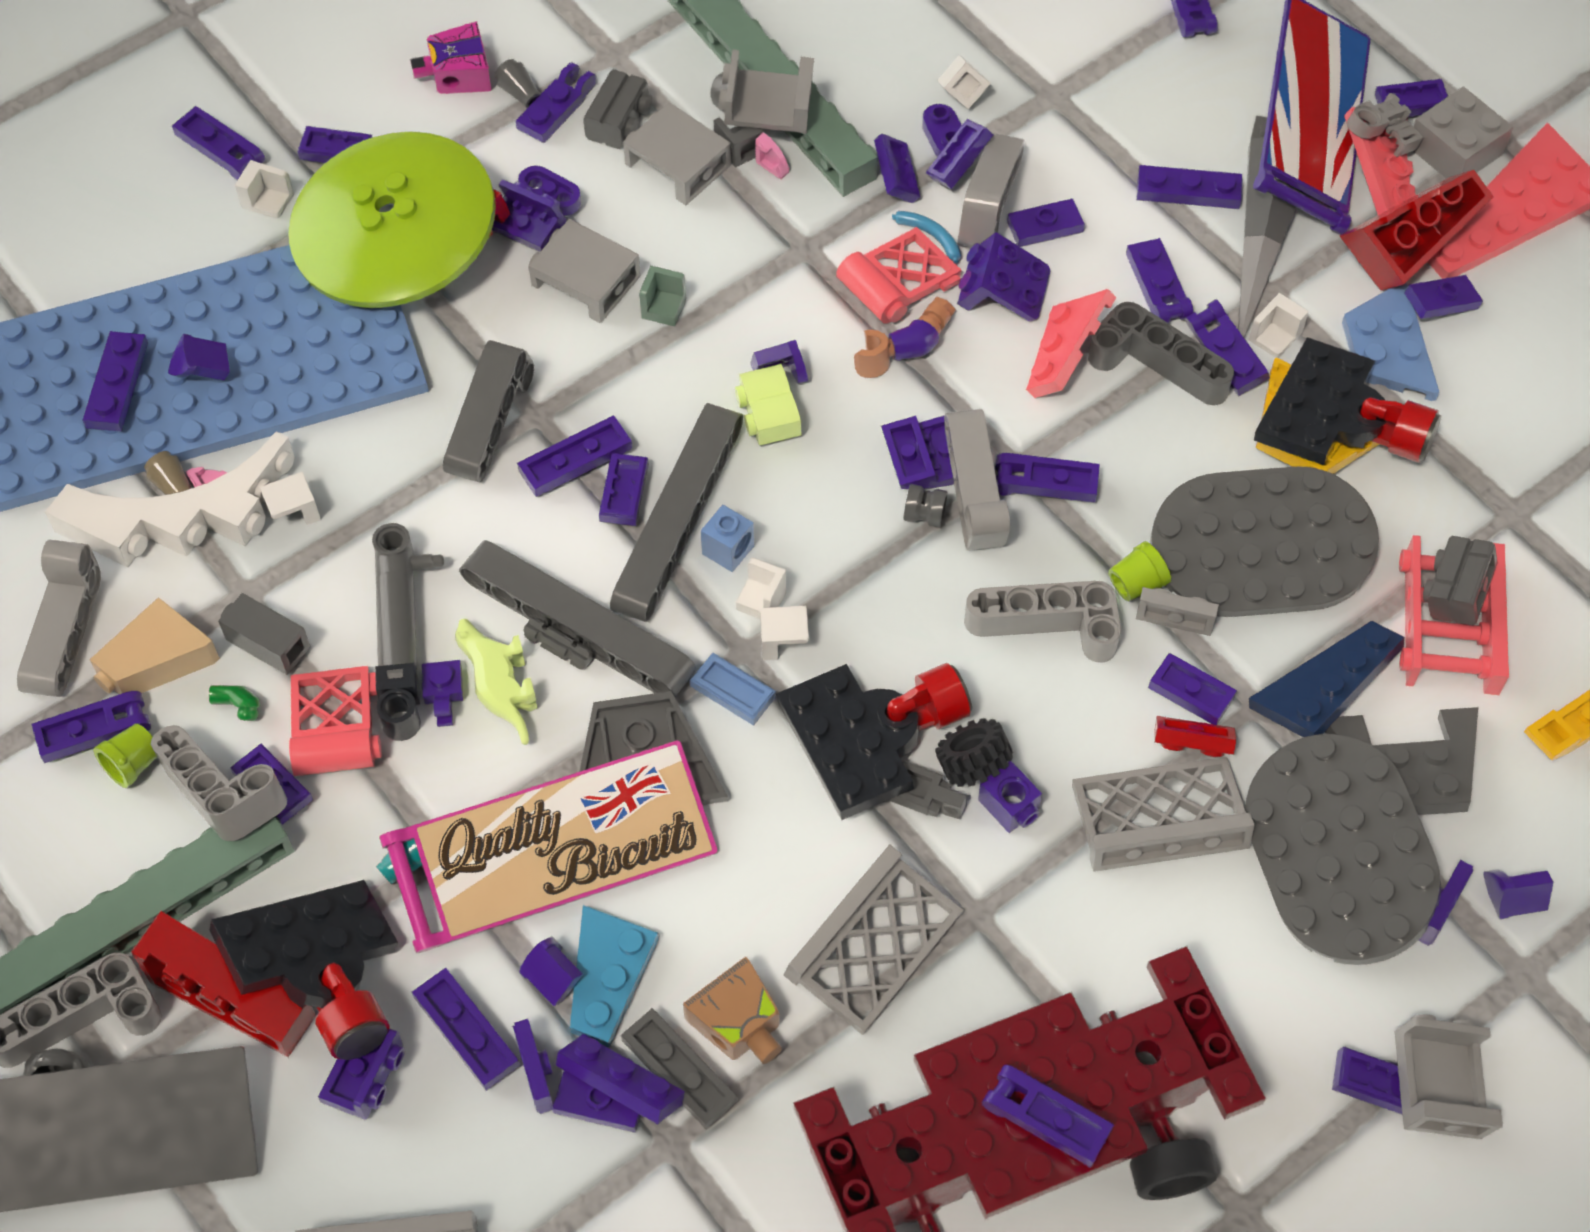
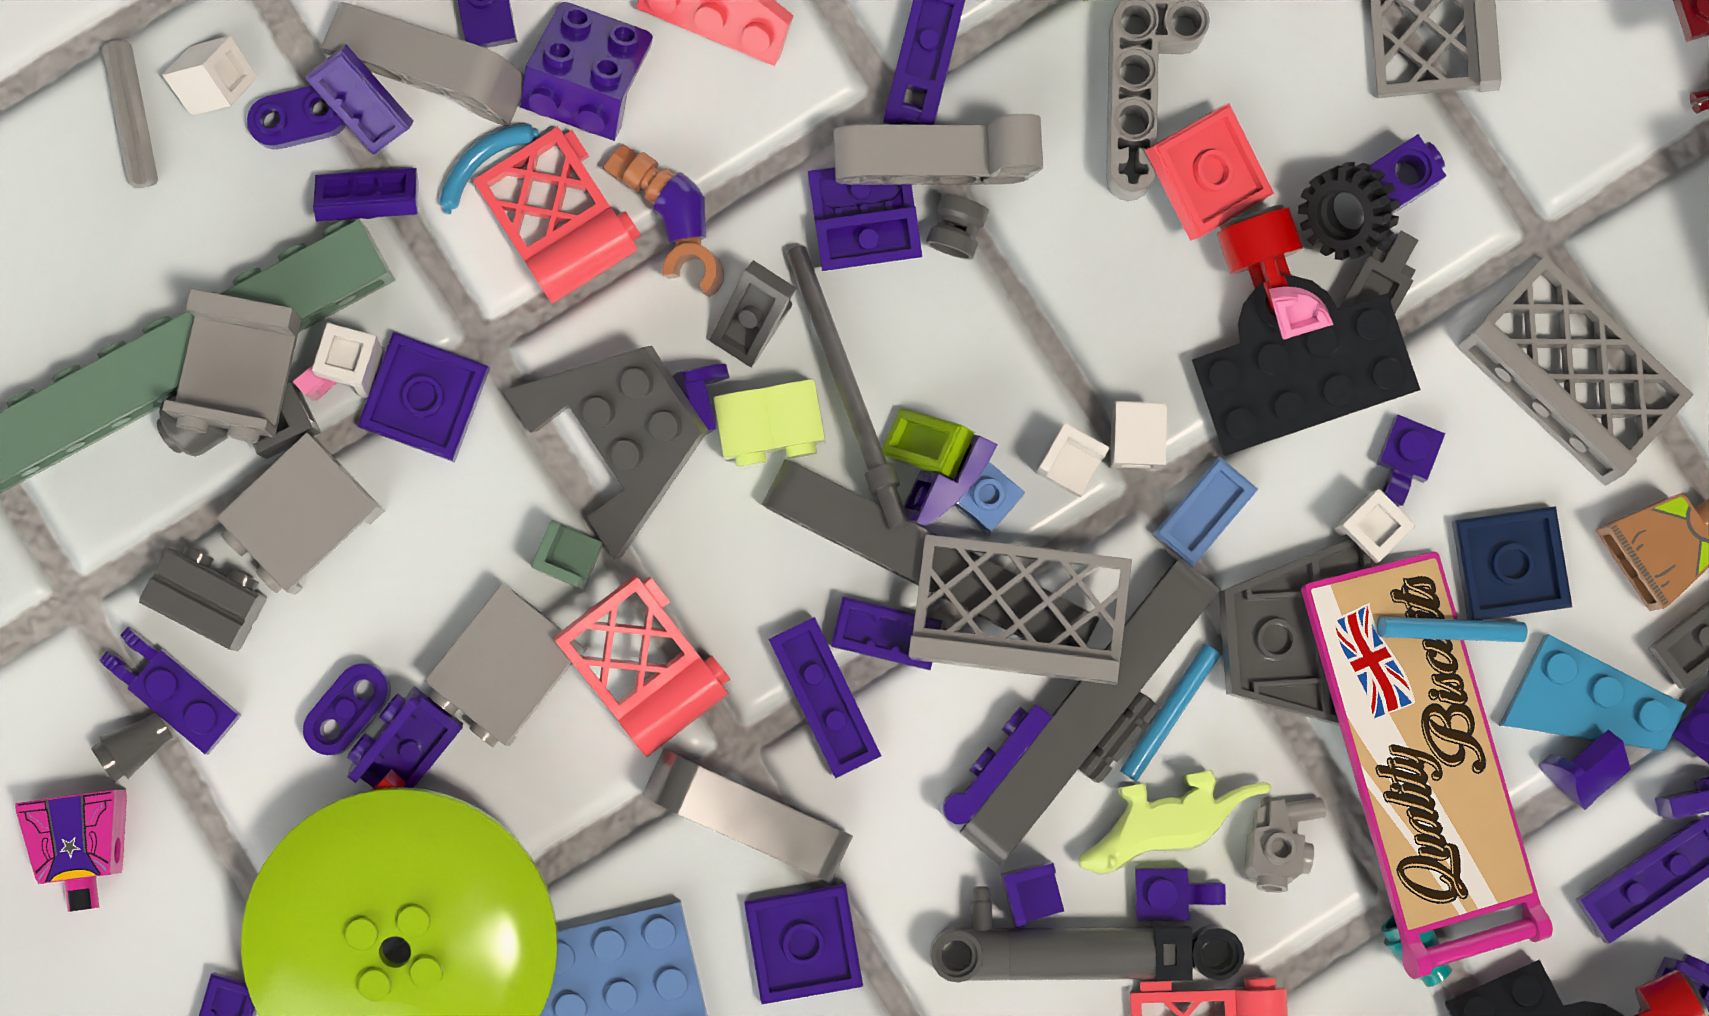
camera: 85 degrees left, 25 degrees up
(400, 462) = (803, 944): none -> dark purple tile
(439, 591) = (1032, 892): none -> dark purple panel
(479, 746) = (1274, 848): none -> light grey piece
(499, 534) = (994, 766): none -> dark purple plate
(572, 365) = (670, 696): none -> coral piece
(575, 675) = (1170, 712): none -> dark azure bar
(612, 541) = (1013, 654): none -> light grey fence
(655, 858) = (1452, 629): none -> dark azure bar
(712, 907) = (1512, 564): none -> dark blue tile
(724, 489) = (936, 494): none -> slope
(732, 792) = (1375, 525): none -> white panel
(734, 463) = (880, 476): none -> flat silver bar
(752, 323) = (634, 421): none -> dark grey wing
(762, 491) = (927, 442): none -> lime tile
(764, 216) = (423, 397): none -> dark purple tile
(781, 165) = (348, 358): none -> white panel
(791, 825) = (1409, 455): none -> dark purple plate
(846, 389) = (753, 313): none -> dark grey slope
(888, 712) = (1298, 311): none -> bright pink tile
(932, 47) = (130, 114): none -> light grey axle
(991, 658) = (1209, 172): none -> coral tile

